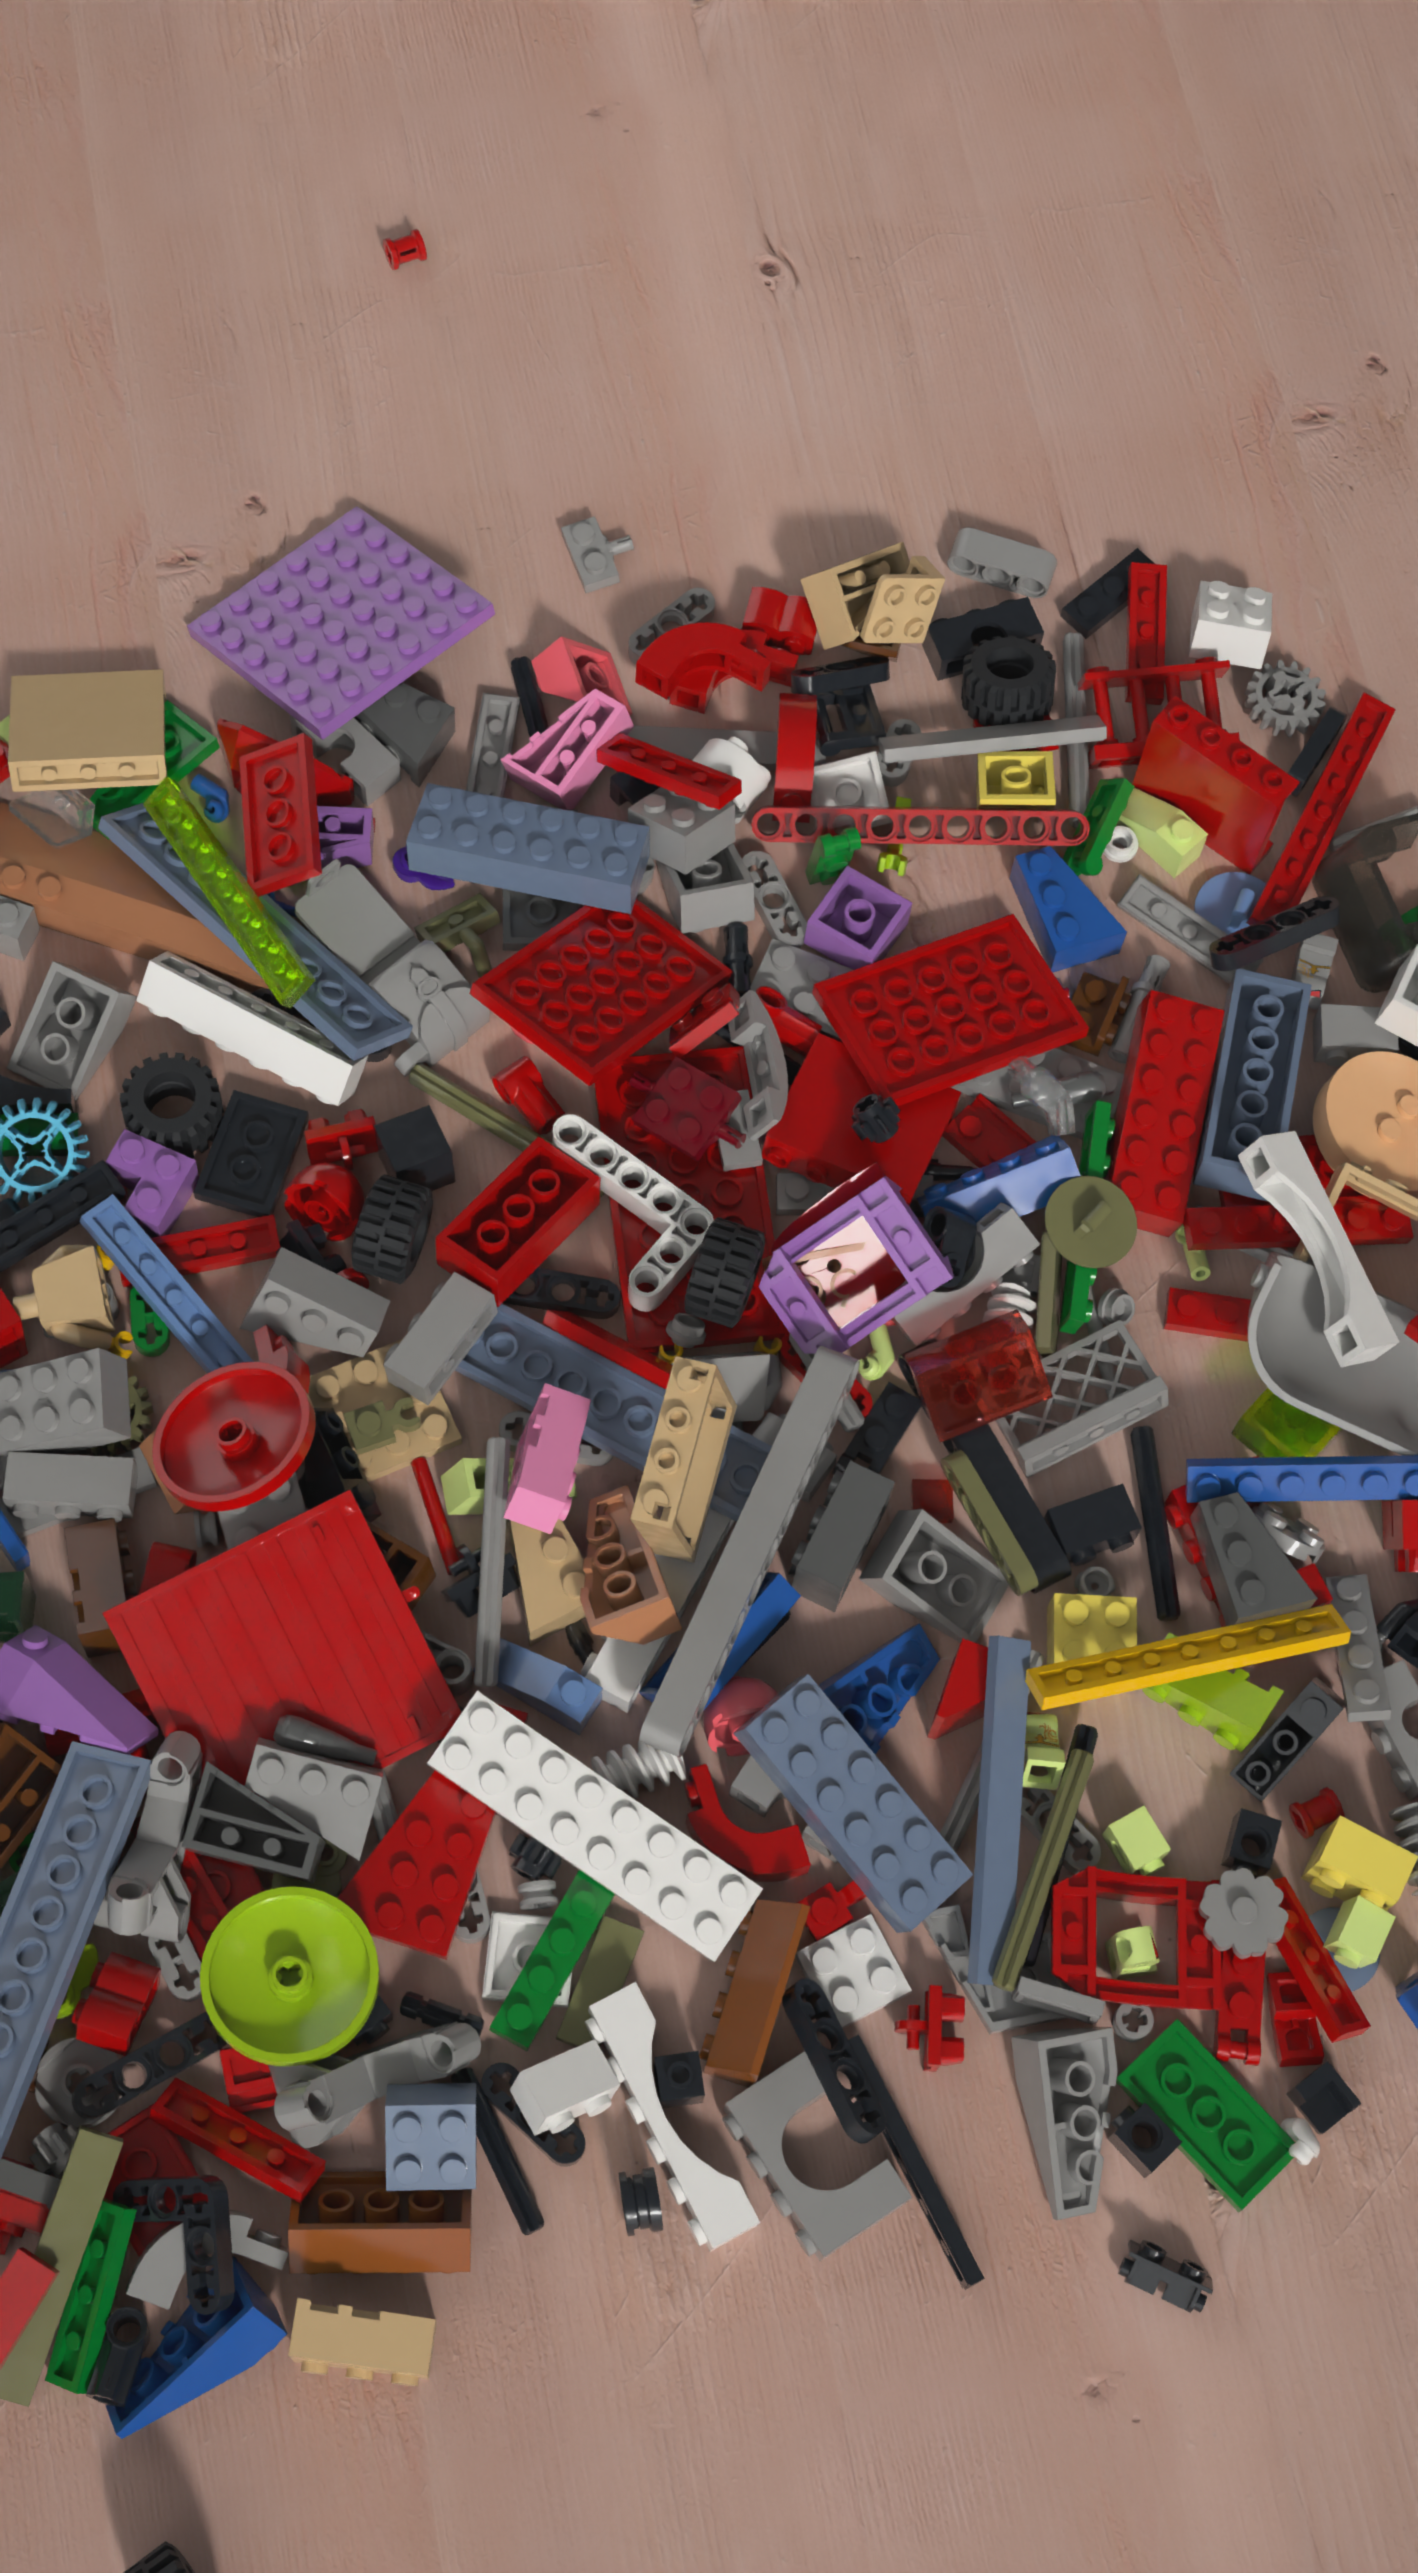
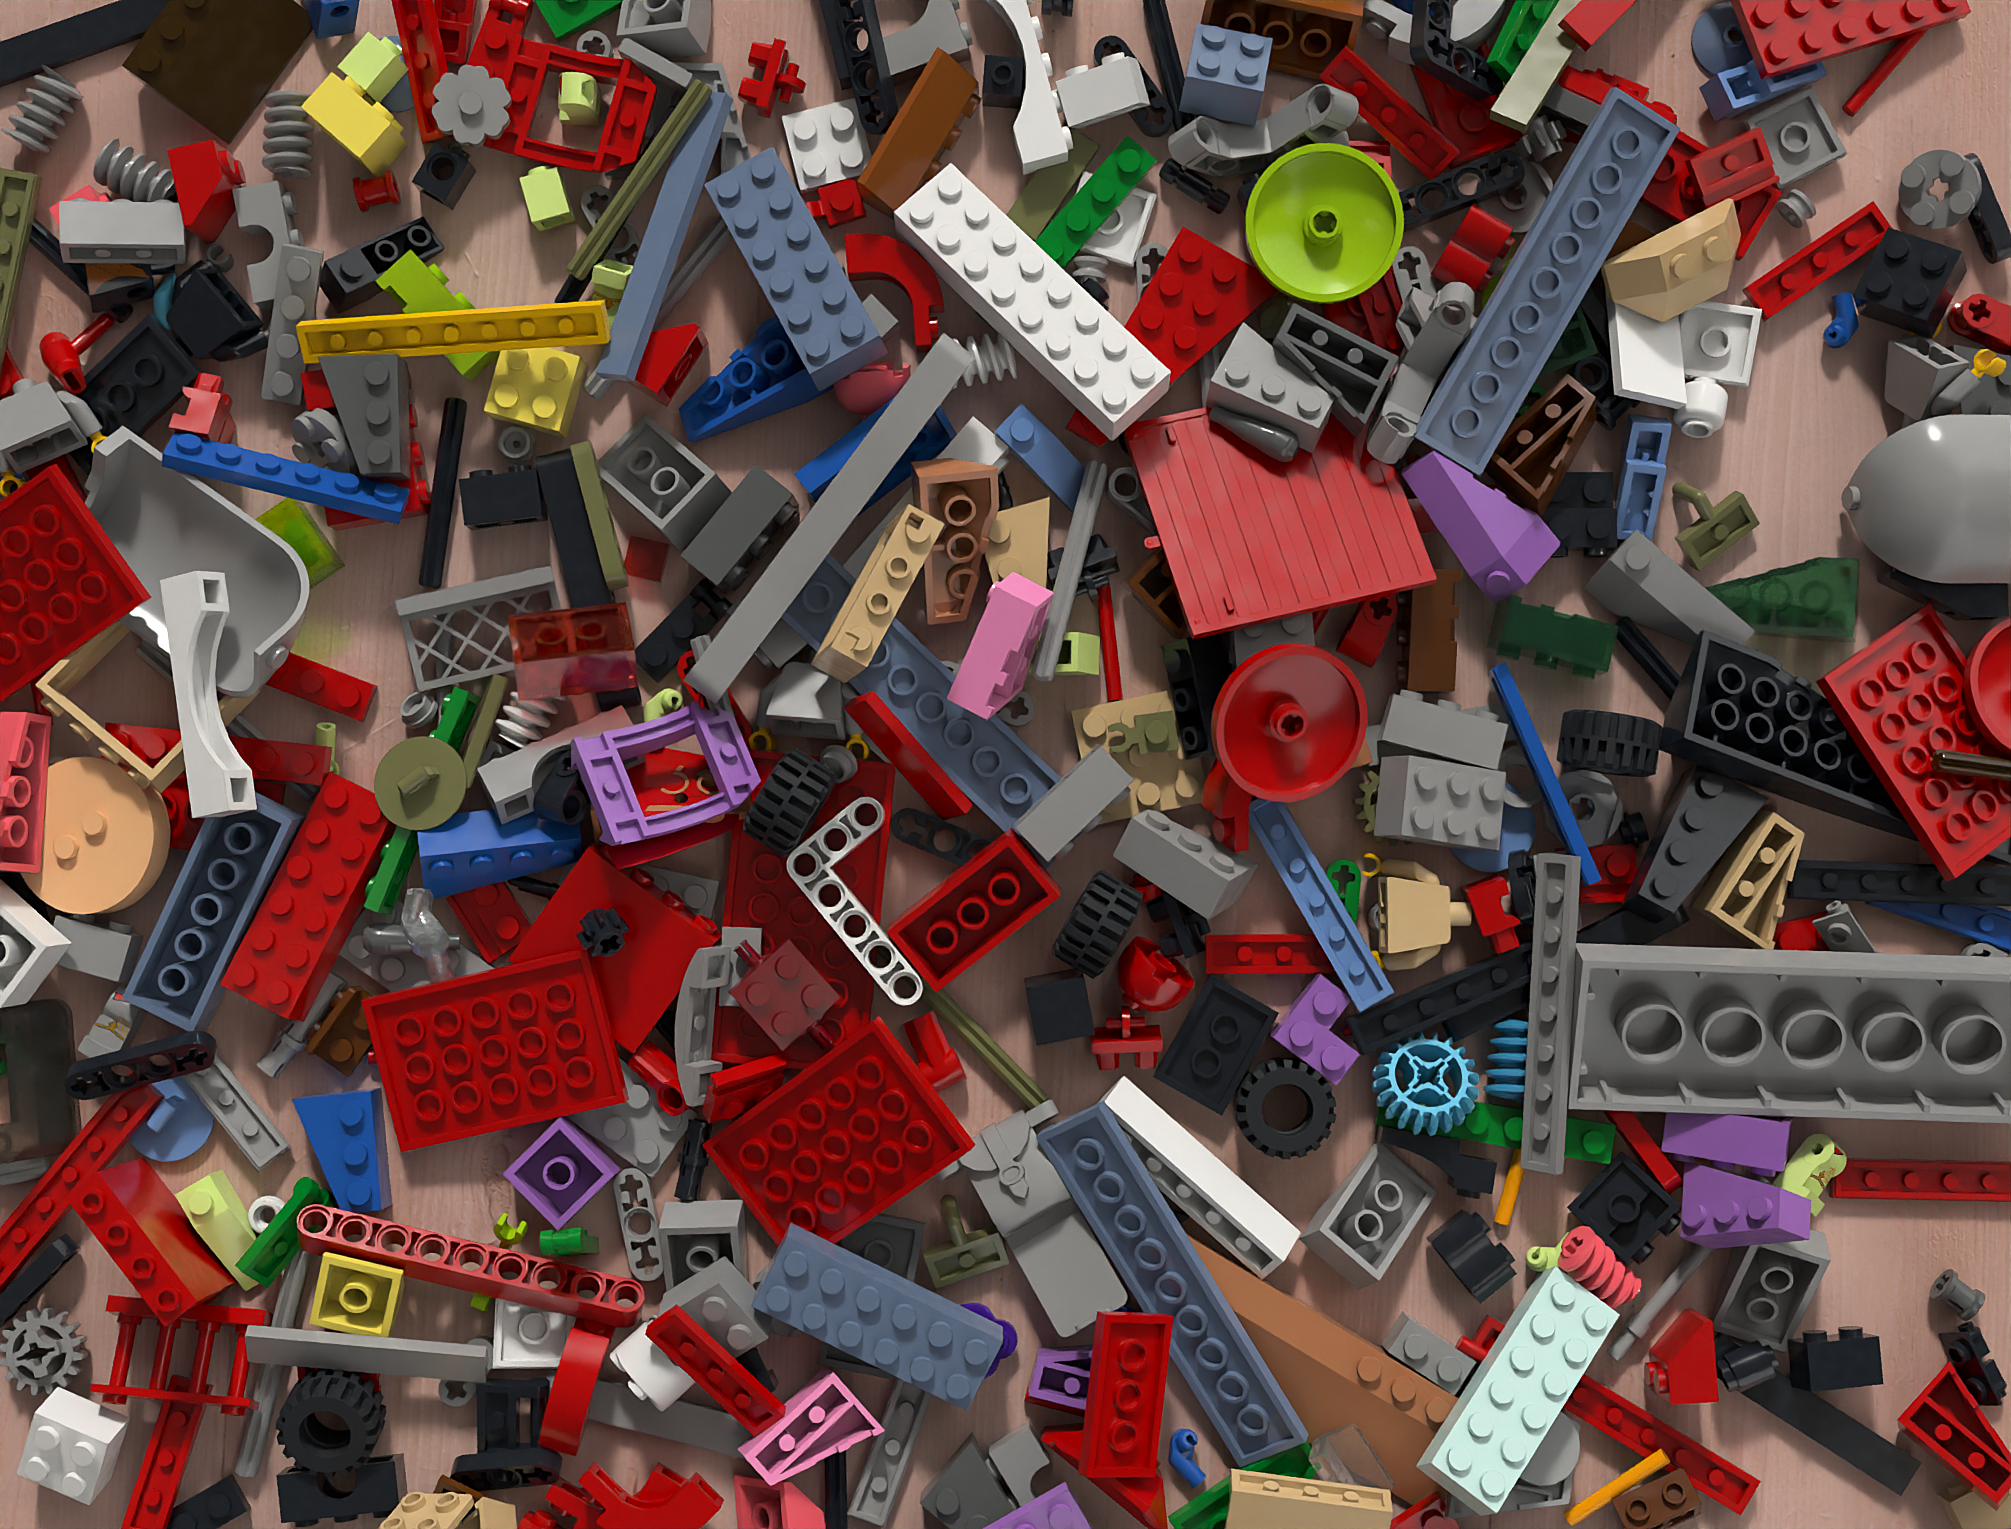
camera: 160 degrees left, 20 degrees up
(229, 893) = (1193, 1318): clear neon green plate -> none

